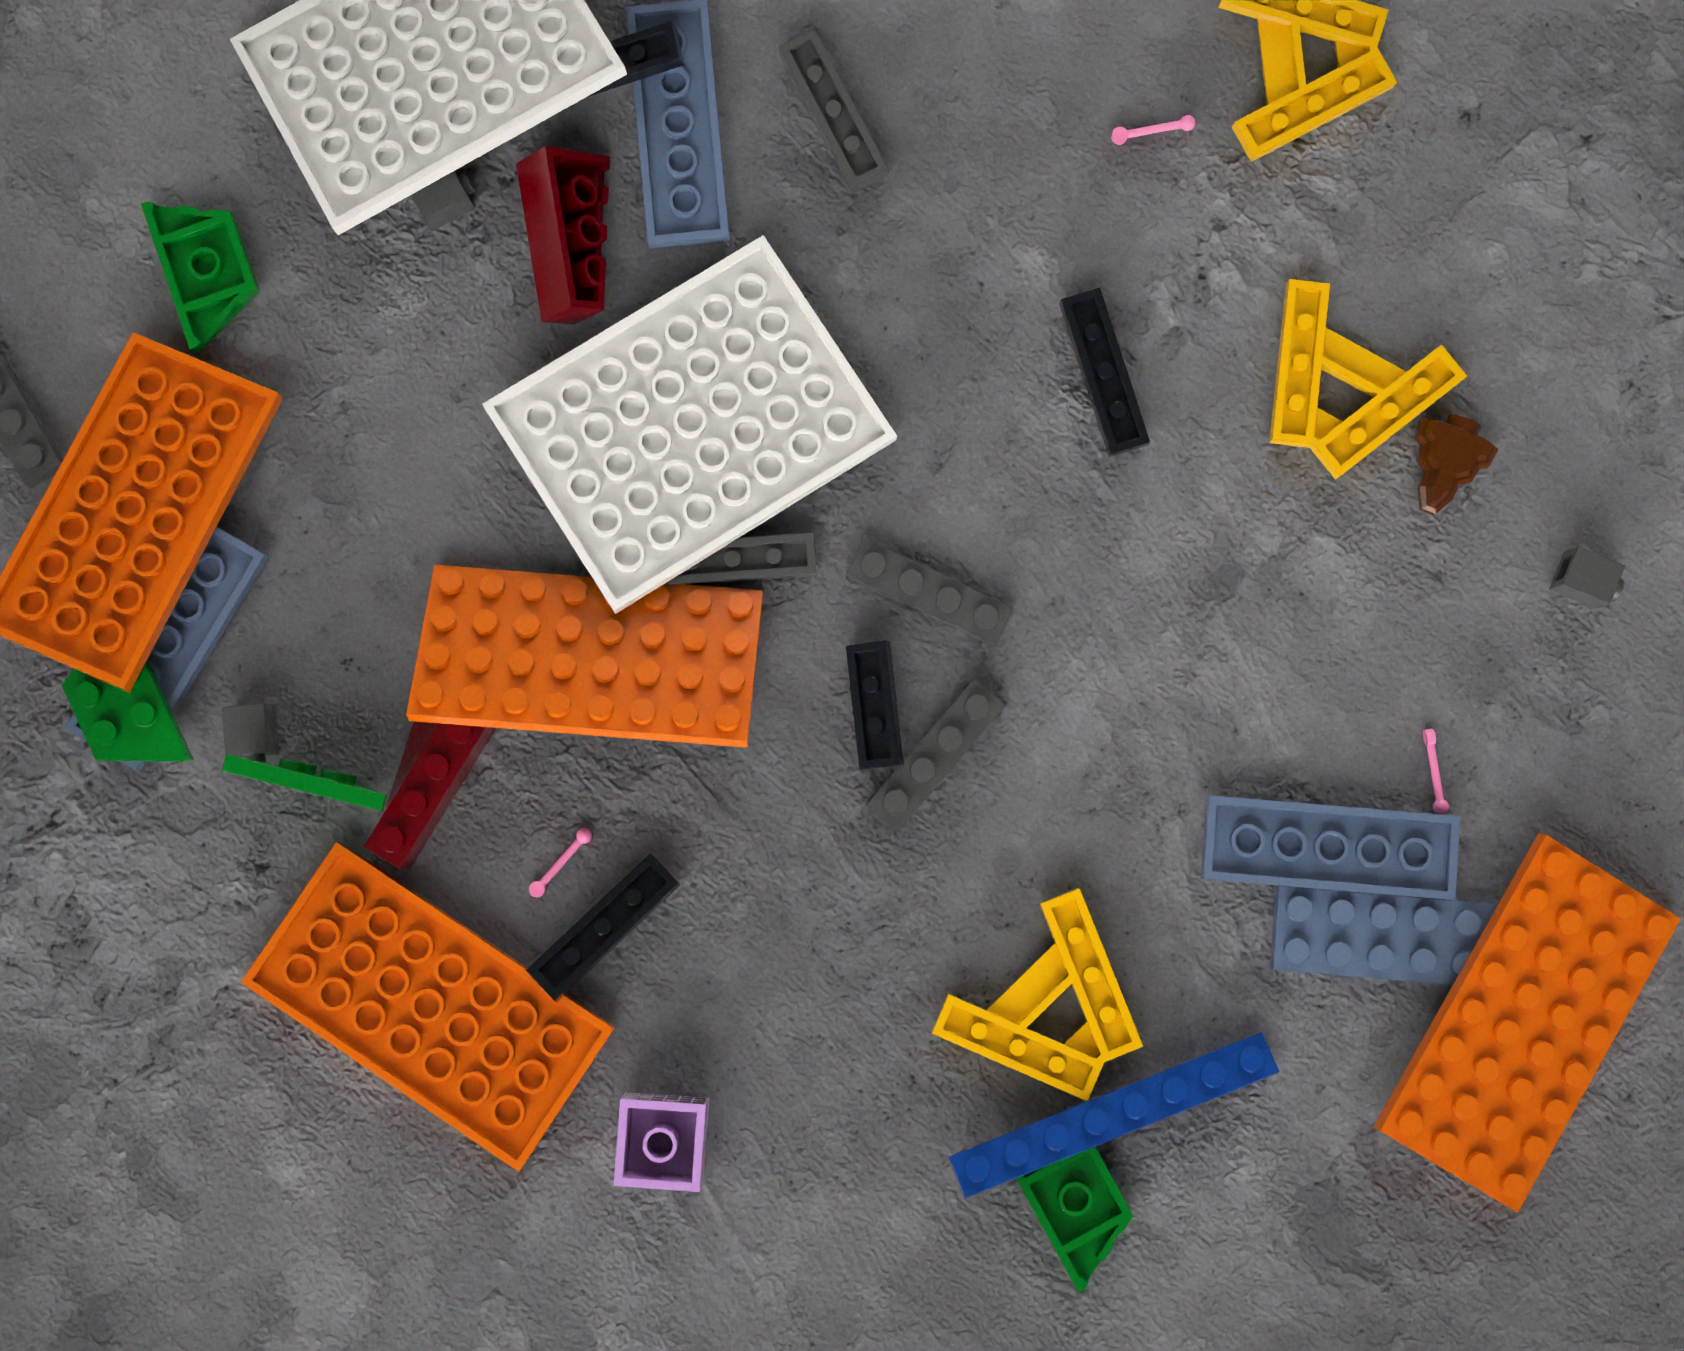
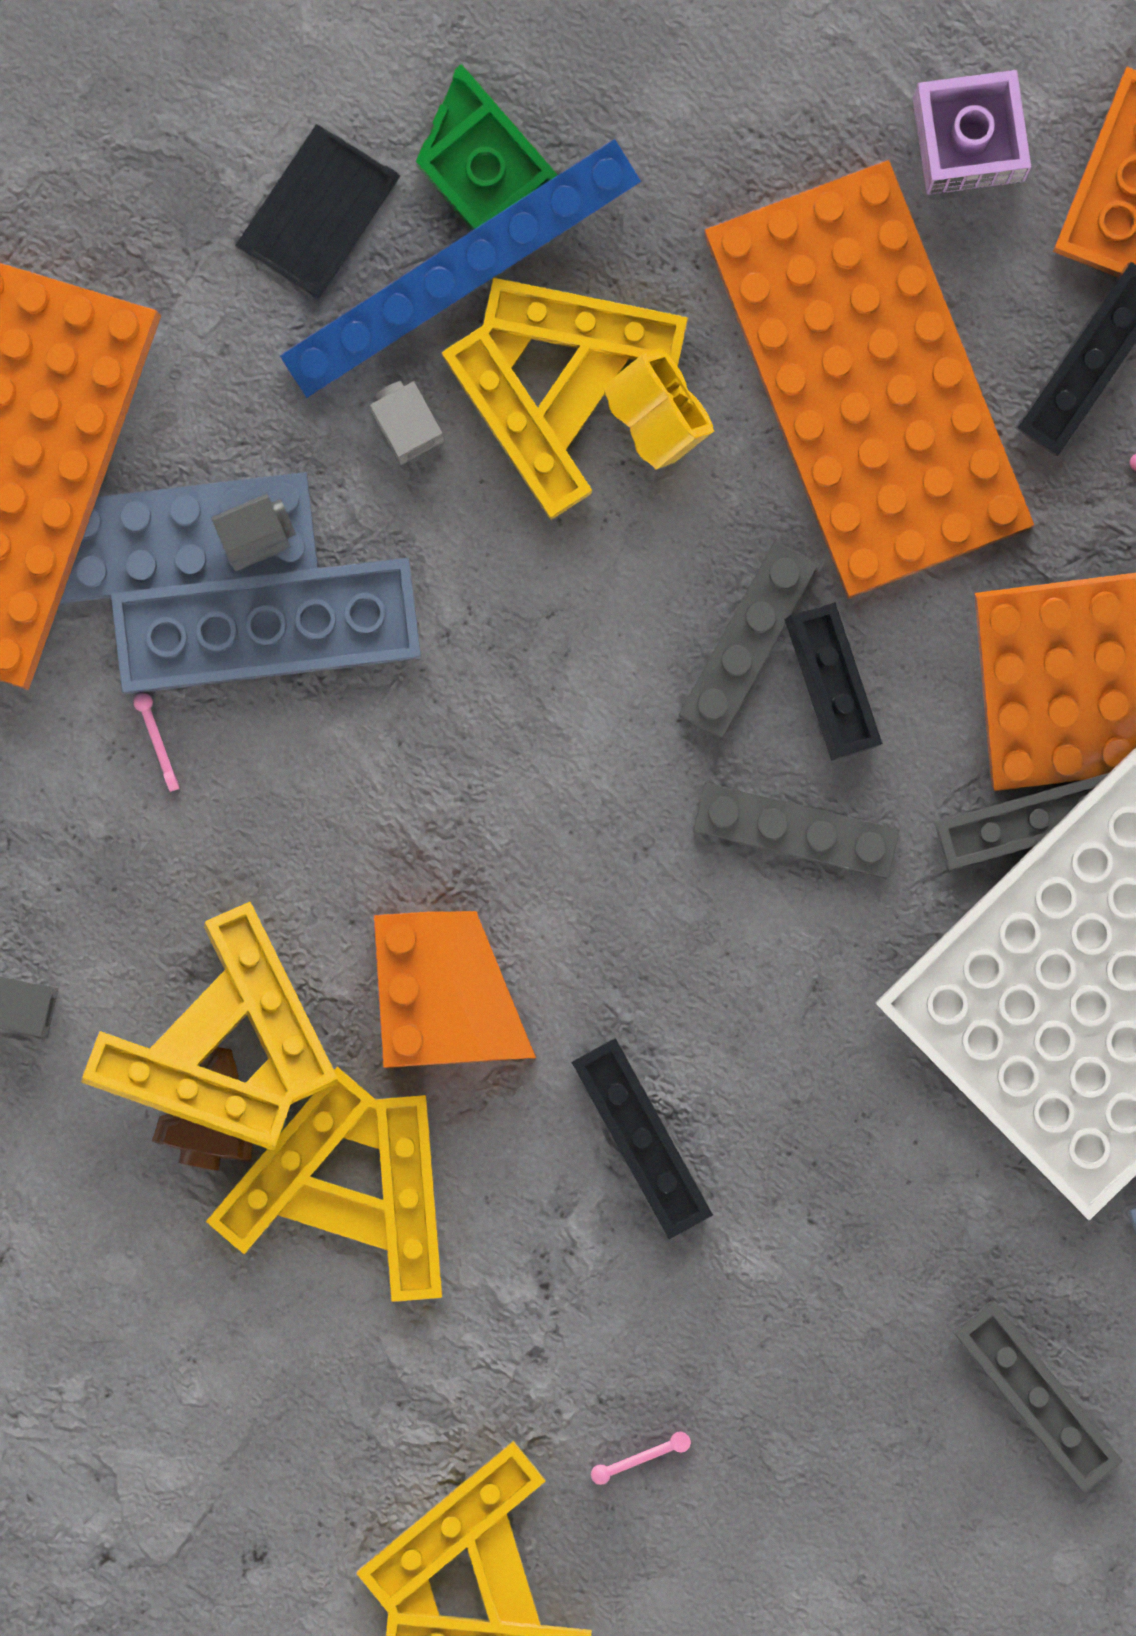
camera: 165 degrees right, 0 degrees up
(791, 953) = (868, 379): none -> orange plate
(972, 960) = (658, 408): none -> yellow brick
(1183, 994) = (406, 421): none -> light grey brick
(1220, 1191) = (317, 211): none -> black piece
(1243, 517) = (443, 992): none -> orange wedge
(1336, 922) = (254, 531): none -> dark grey brick
(1482, 494) = (170, 1072): none -> yellow plate

